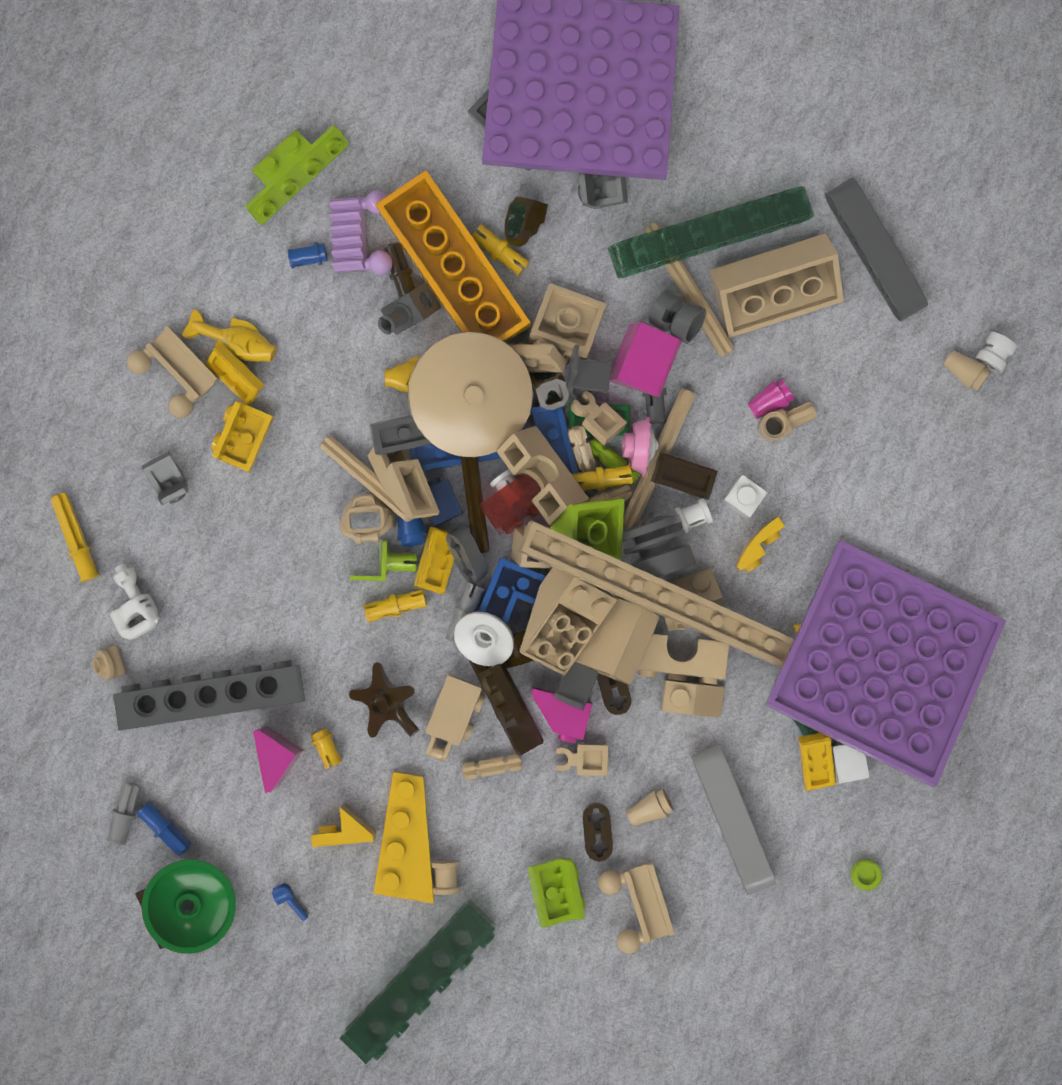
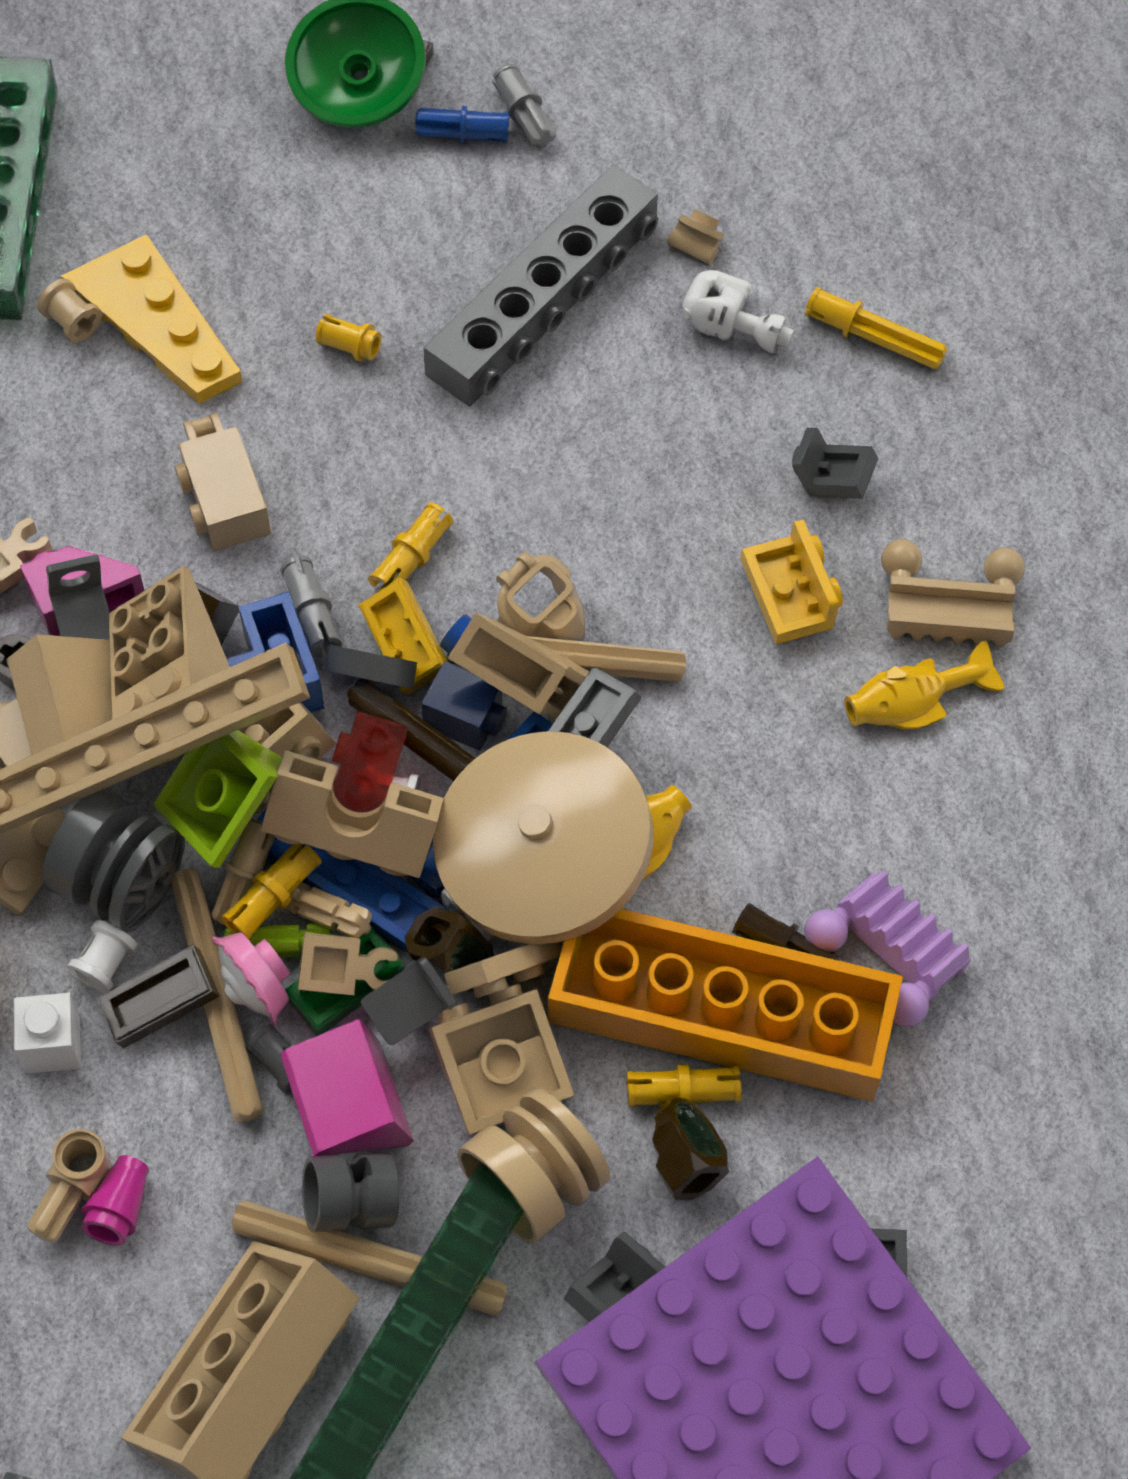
camera: 135 degrees right, 25 degrees down
(234, 374) = (873, 648): yellow plate -> none
(275, 756) = (406, 270): dark pink slope -> none
(284, 893) = (253, 164): blue hand -> none
(291, 168) = (1061, 955): lime bracket -> none
(307, 255) = (922, 873): blue pin -> none
(352, 831) = (238, 269): yellow slope -> none
(385, 702) = (319, 431): dark brown animal -> none
(389, 562) = (467, 584): lime bracket -> none
(407, 310) = (732, 888): dark grey bracket -> none
(480, 647) = (255, 575): white dish -> none
(491, 766) = (118, 469): tan axle -> none
(508, 707) = (161, 547): dark brown bracket -> none
(595, 260) = (539, 1161): none -> tan wheel

